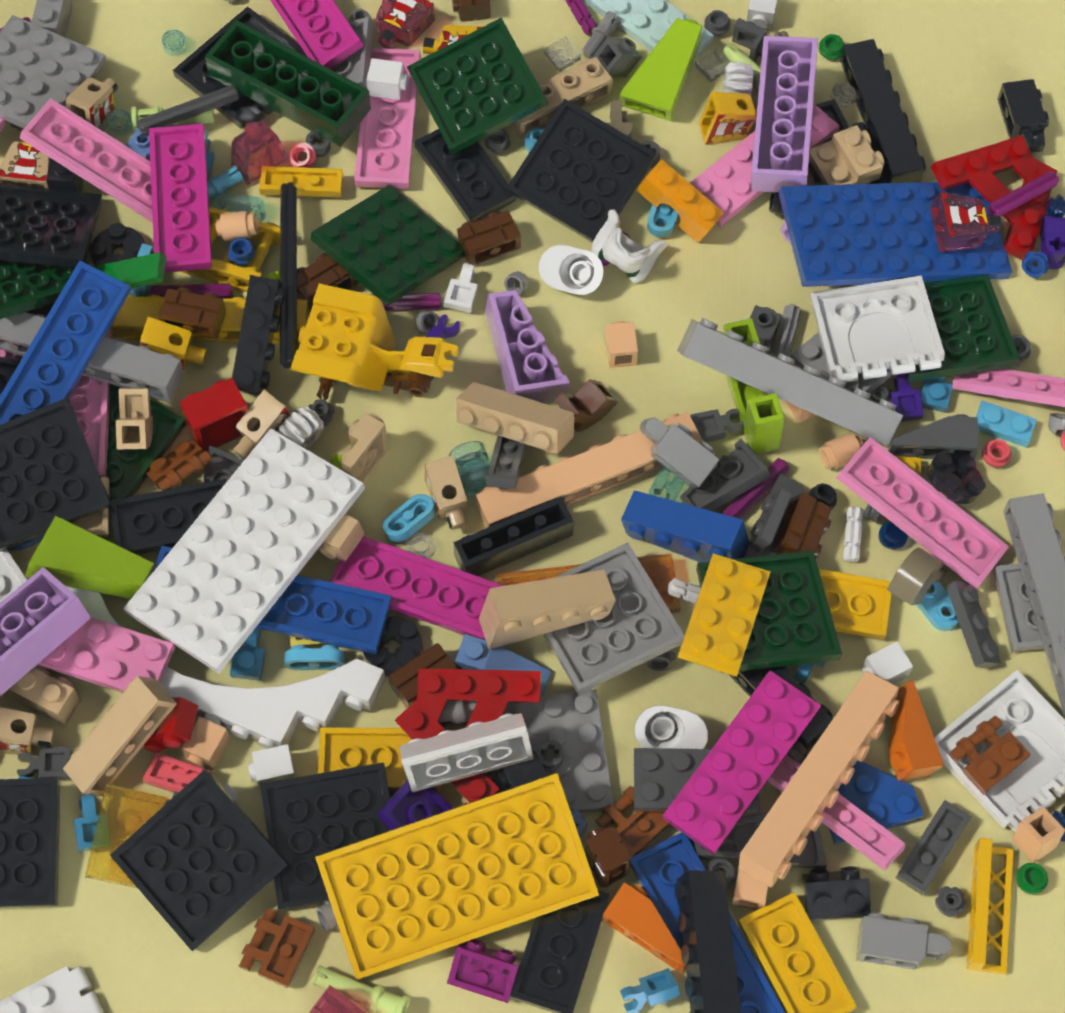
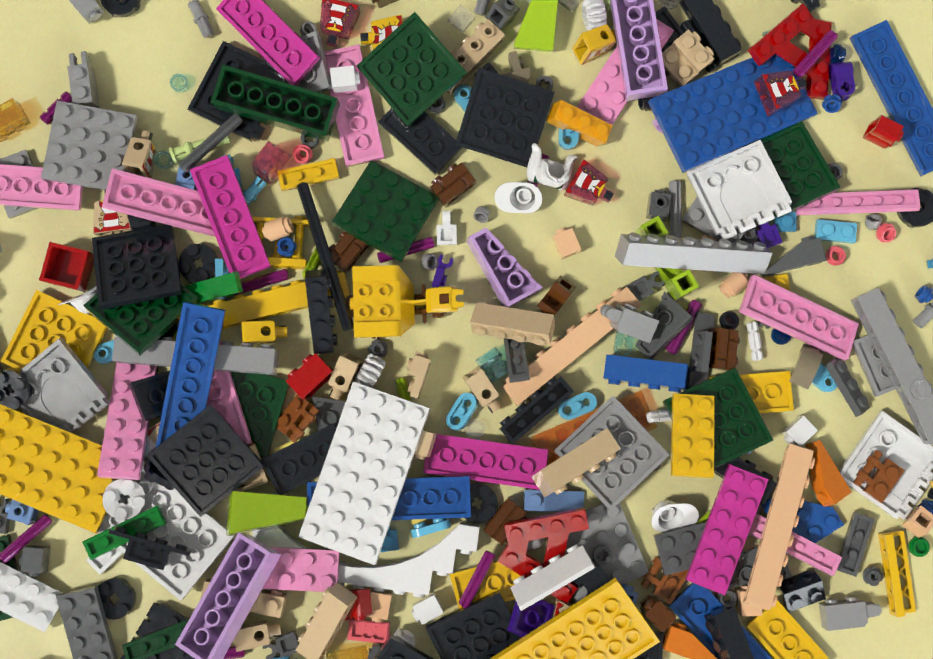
camera: 15 degrees left, 20 degrees up
(135, 423) = (258, 397): tan brick -> none
(193, 311) = (270, 307): reddish brown brick -> none
(241, 203) = (271, 202): clear light blue beam -> none
(357, 739) = (476, 579): none -> magenta axle
(573, 550) = (577, 406): none -> medium azure plate
(671, 282) = (588, 185): none -> torso
(956, 477) = (818, 275): black plate -> none

